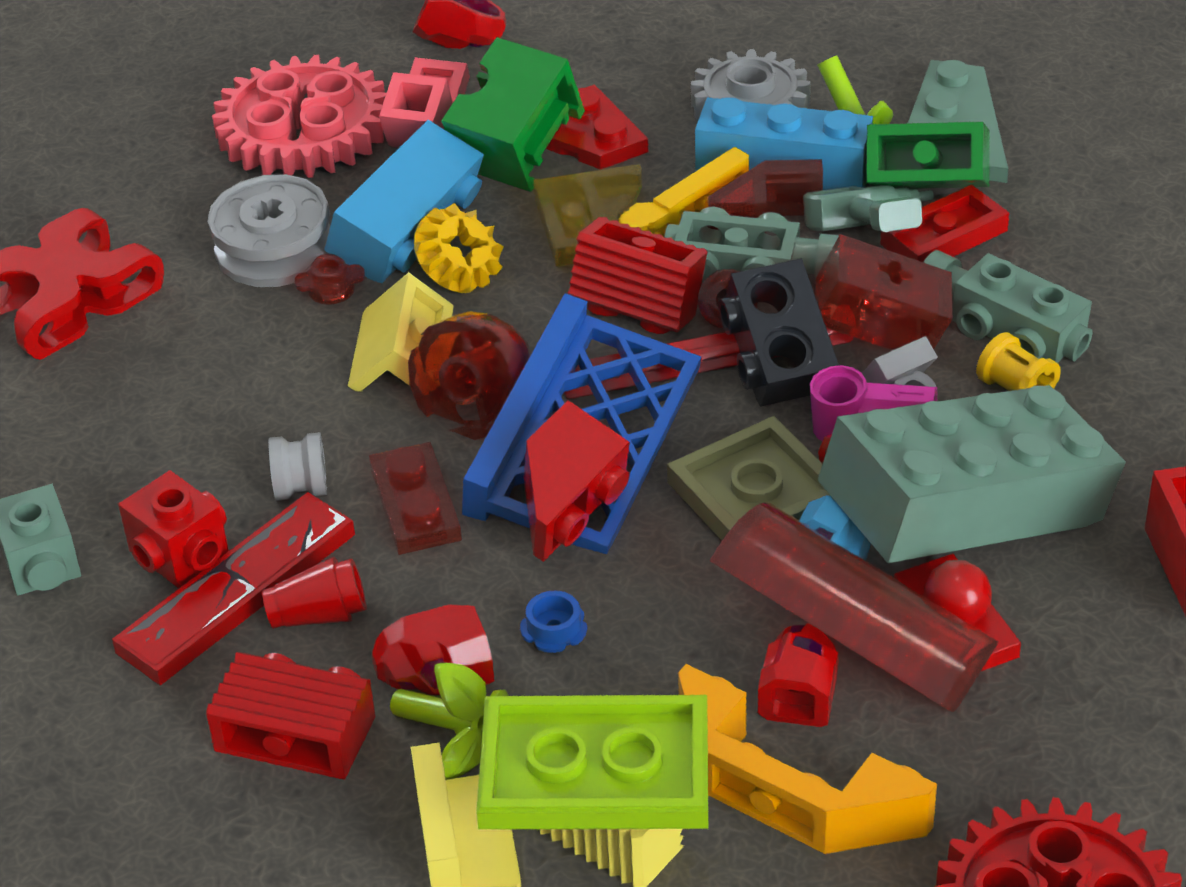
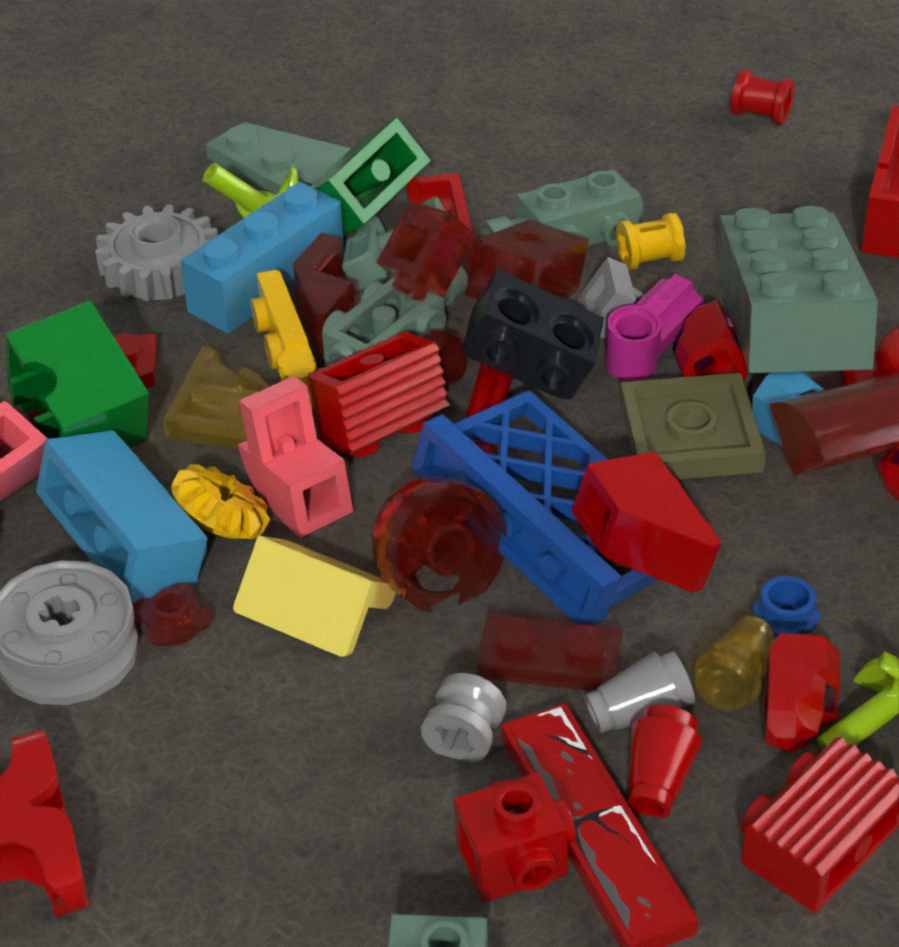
camera: 65 degrees left, 0 degrees up
(390, 562) = (643, 684): none -> light grey cone
(491, 605) = (734, 666): none -> clear yellow cone
(526, 260) = (287, 462): none -> coral brick
(798, 212) = (426, 251): none -> clear red brick

